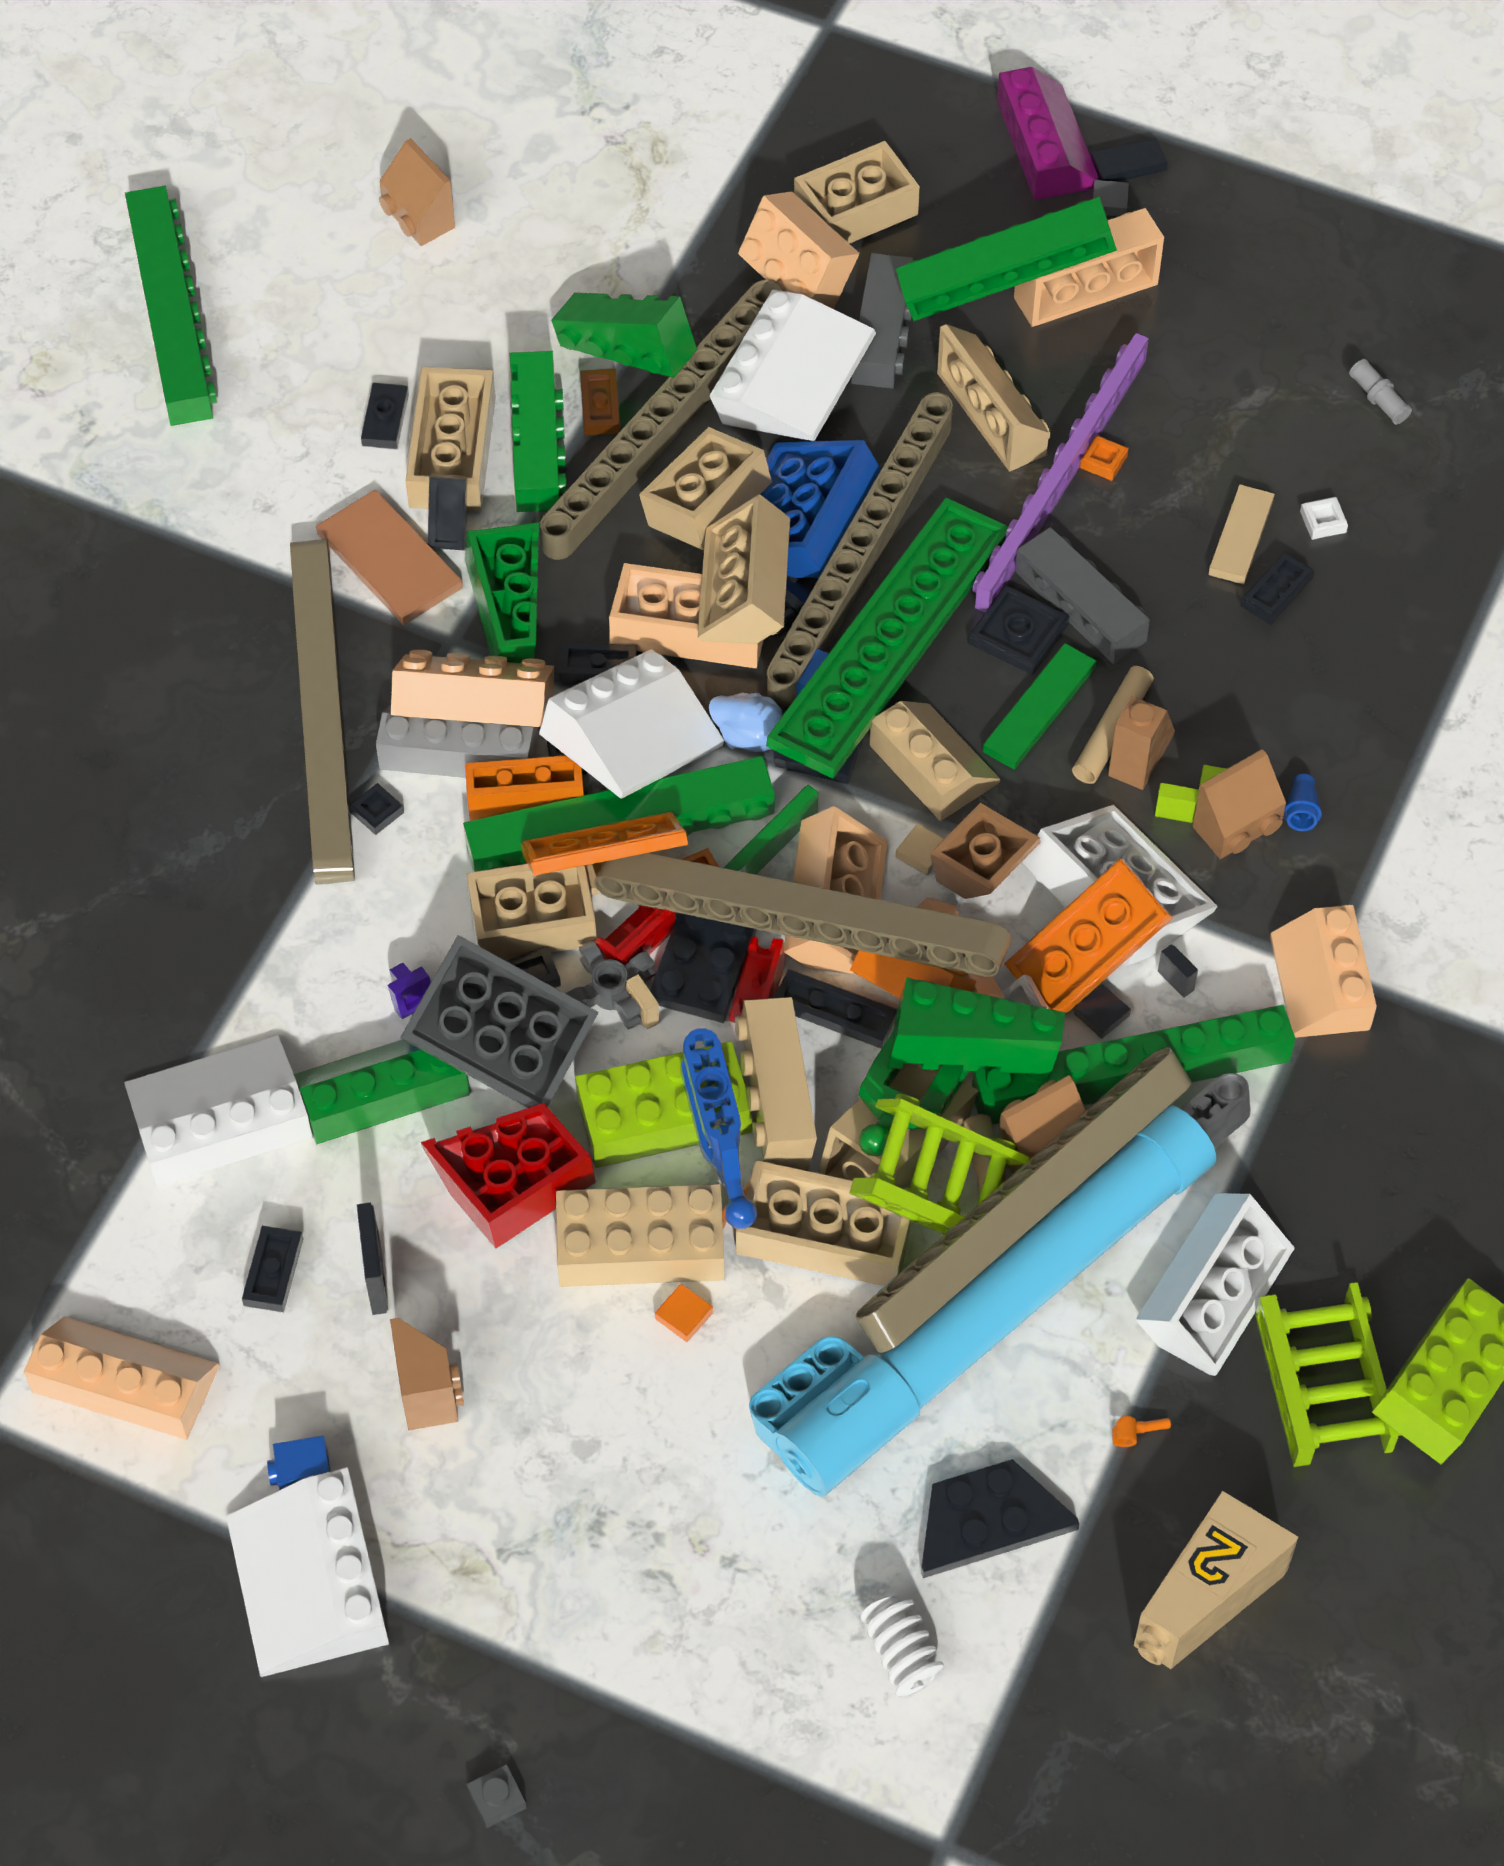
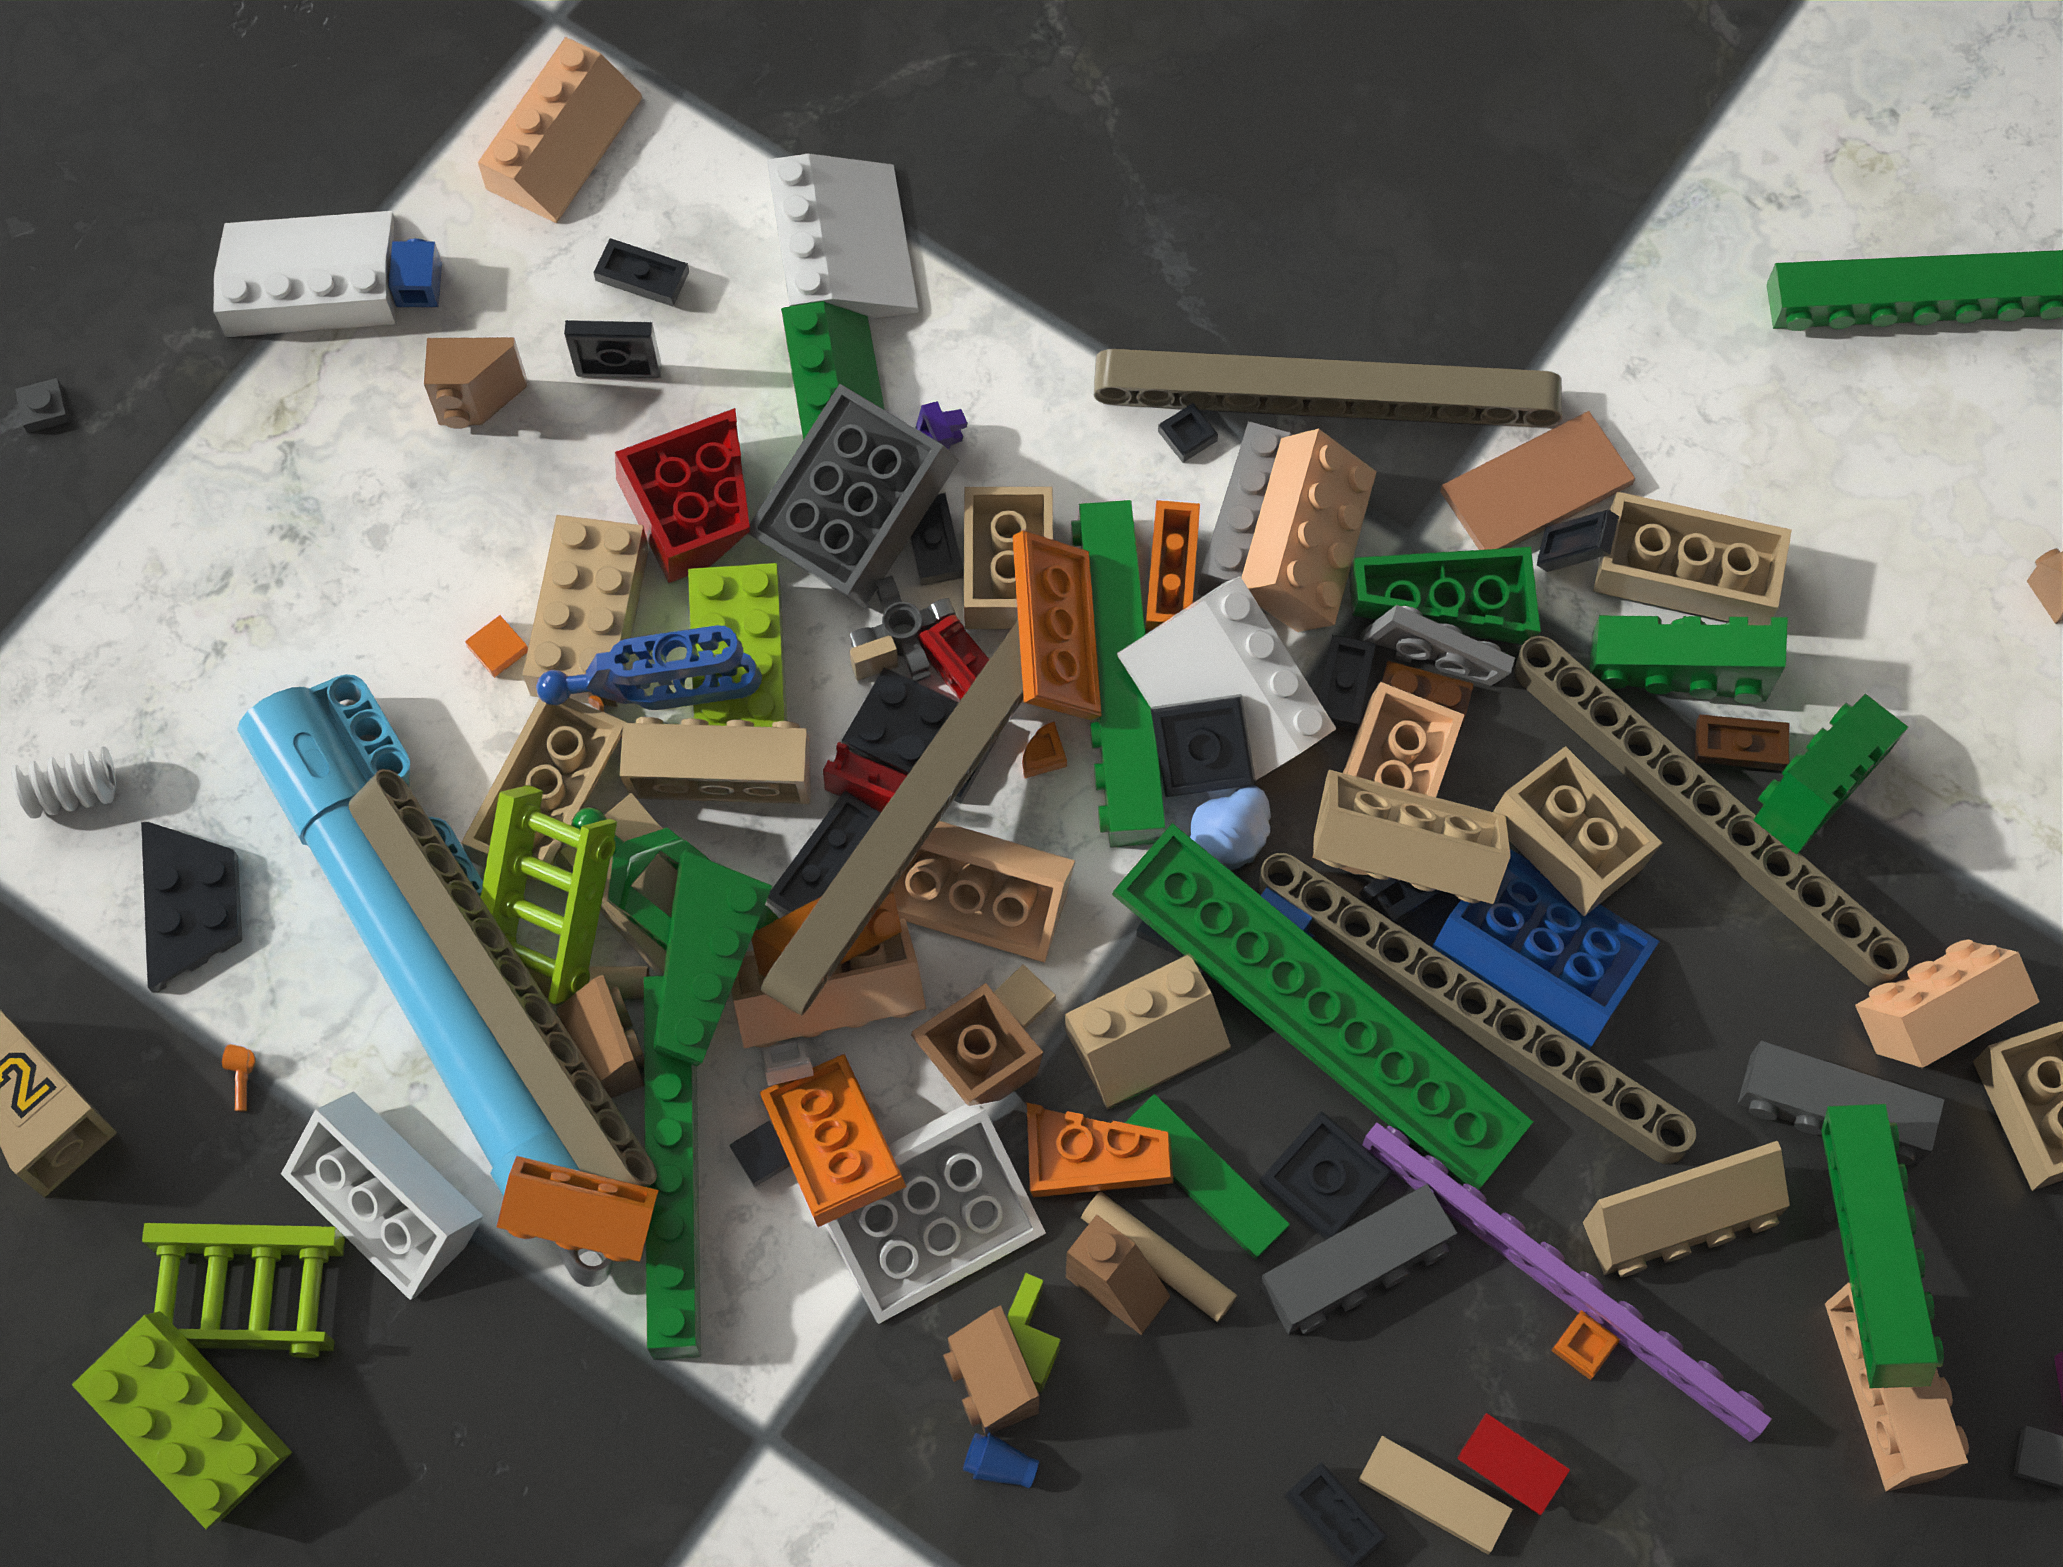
camera: 100 degrees right, 10 degrees up
(384, 416) = (1751, 501): black plate -> none
(556, 600) = (1422, 639): none -> light grey wing
(594, 610) = (1430, 686): none -> reddish brown plate
(684, 735) = (1203, 745): none -> black tile
(776, 833) = (1051, 817): green tile -> none
(790, 367) = (1757, 964): white slope -> none
(1046, 774) = (1093, 1155): none -> orange wing
(1177, 970) = (789, 1248): black tile -> none
(1207, 485) = (1513, 1463): none -> red hinge
(1208, 1086) = (577, 1209): none -> orange brick
(1324, 973) = (748, 1422): light nougat slope -> none

